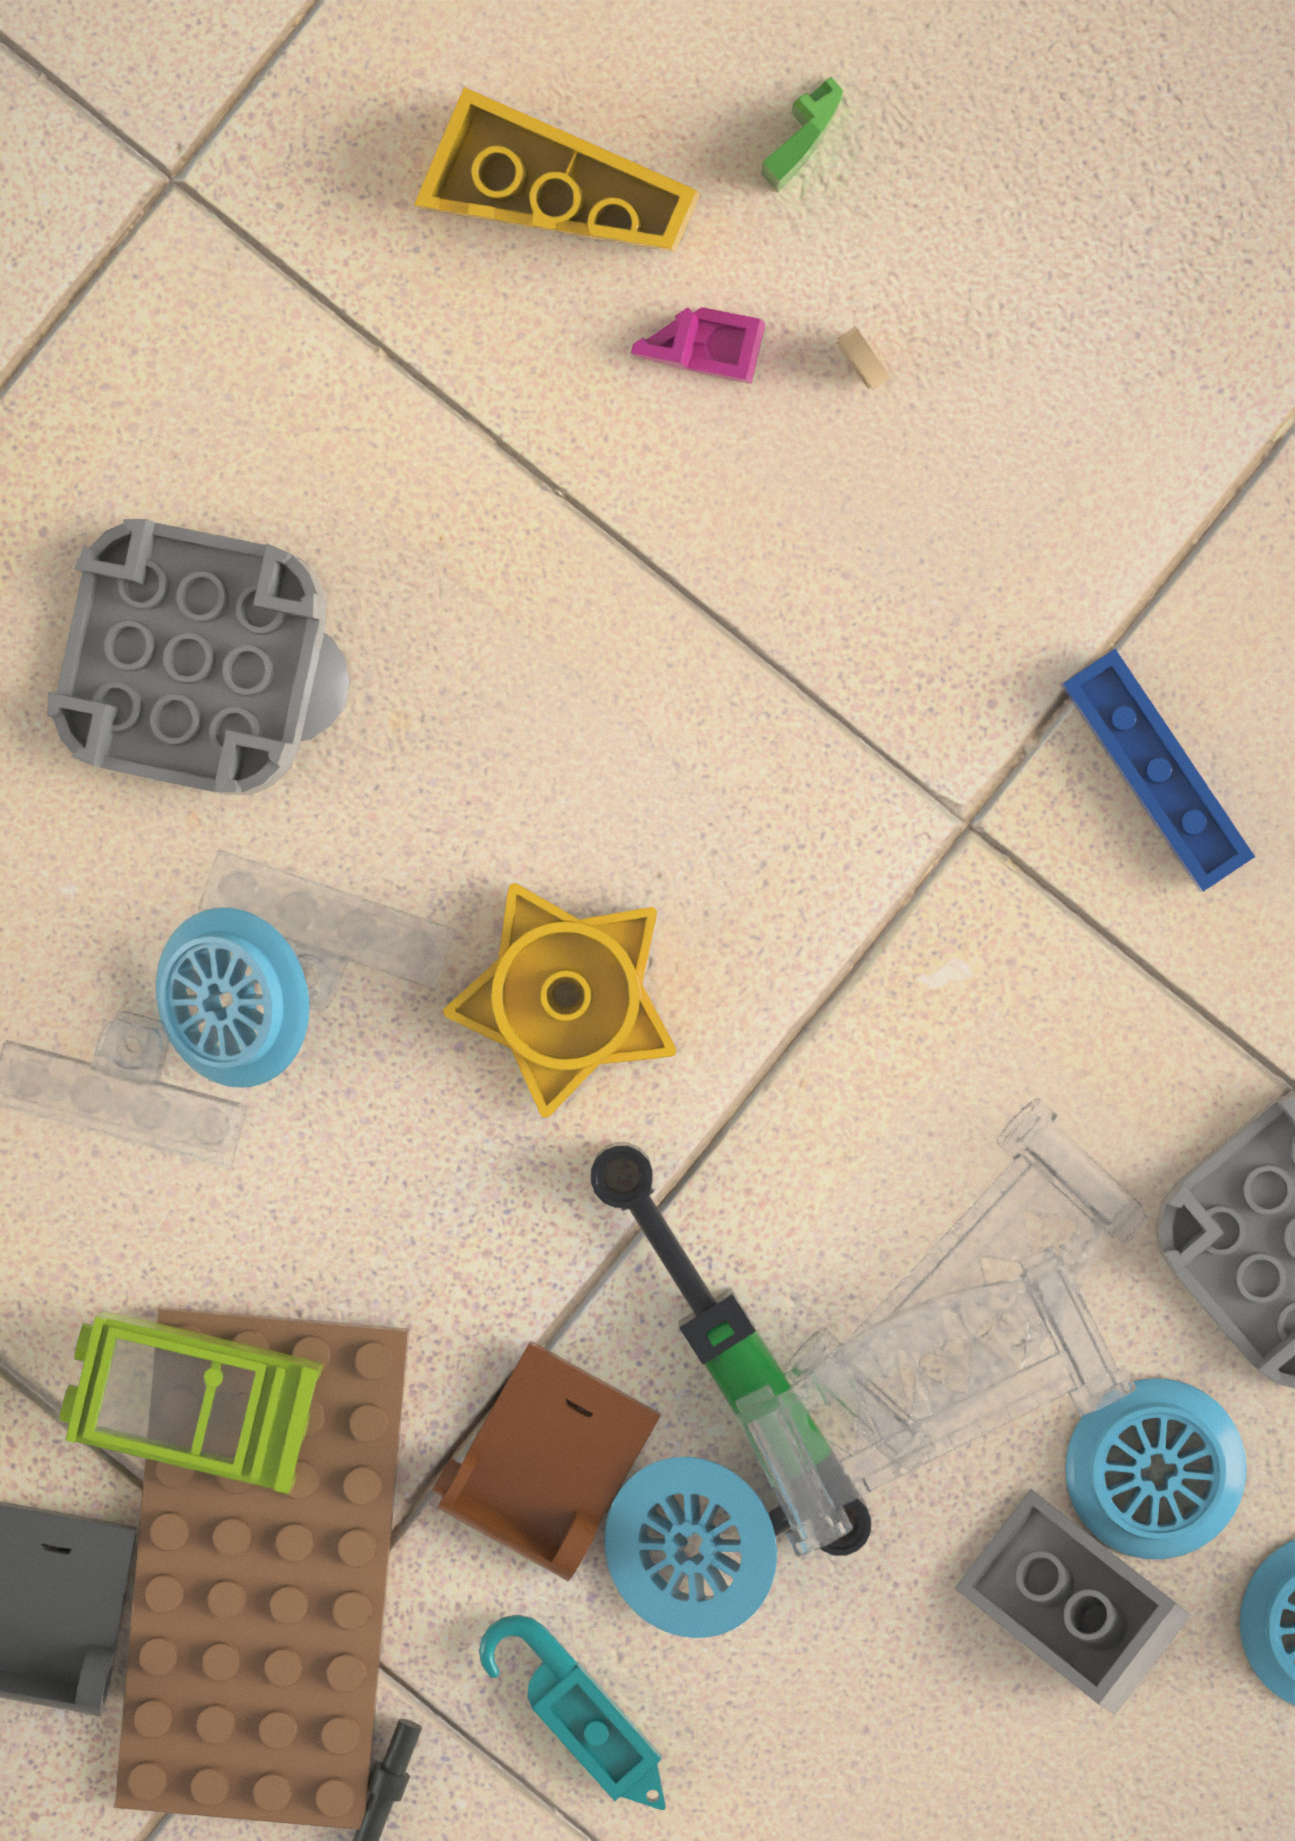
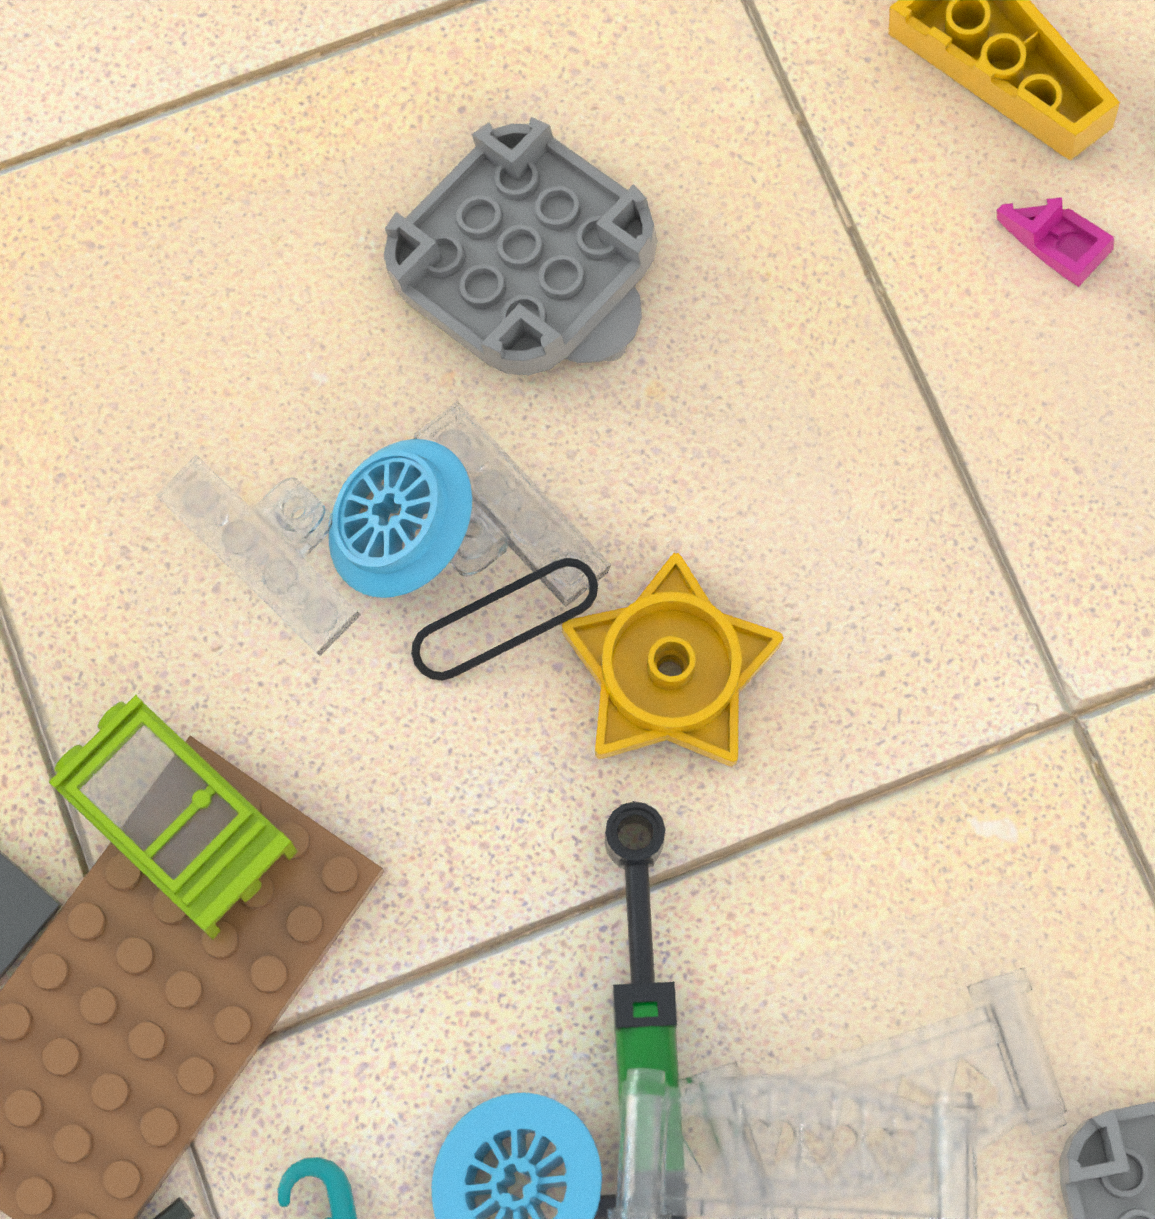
camera: 30 degrees right, 15 degrees down
(408, 1051) = (570, 562): none -> black piece
(542, 1466) = (429, 1049): dark orange door -> none

